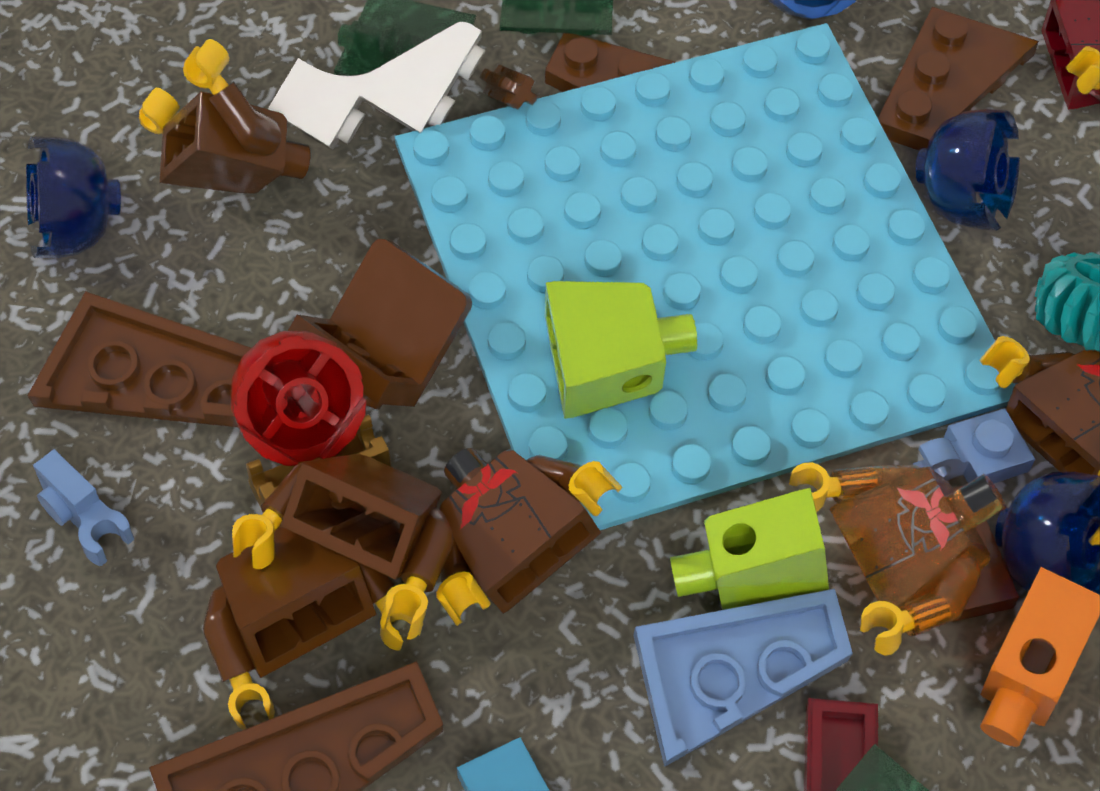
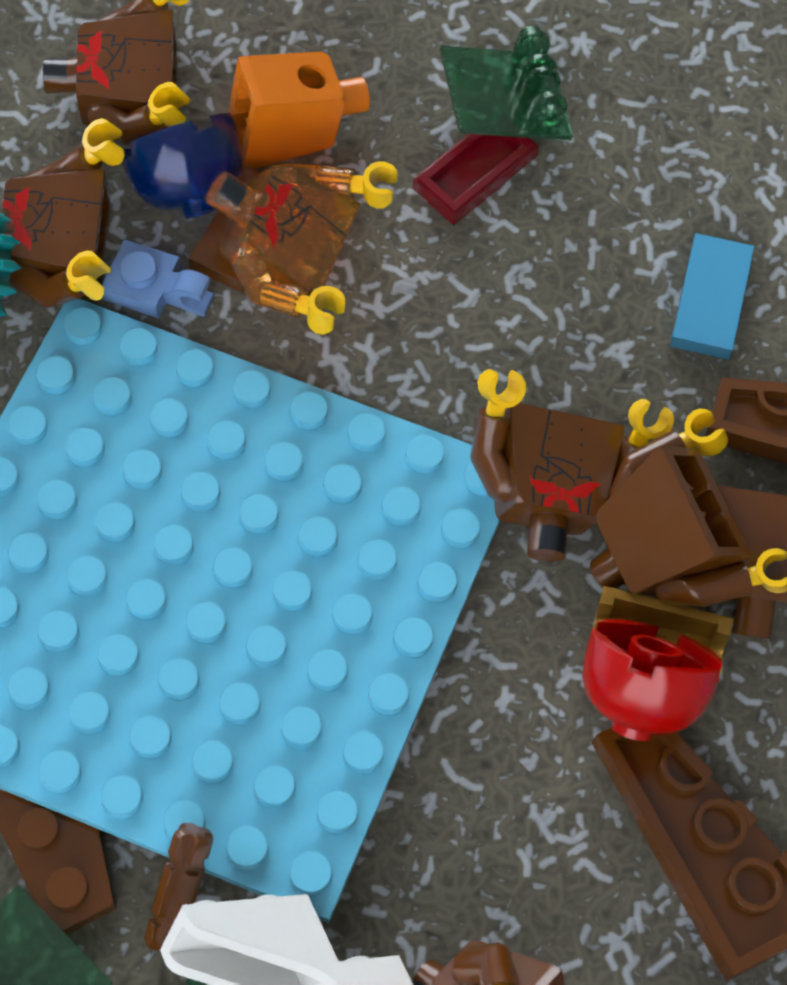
camera: 140 degrees left, 10 degrees up
(393, 323) = (514, 718): reddish brown bracket -> none
(610, 342) = (352, 539): lime torso -> none
(734, 663) = (482, 276): medium blue wing -> none
(758, 553) = (404, 302): lime torso -> none

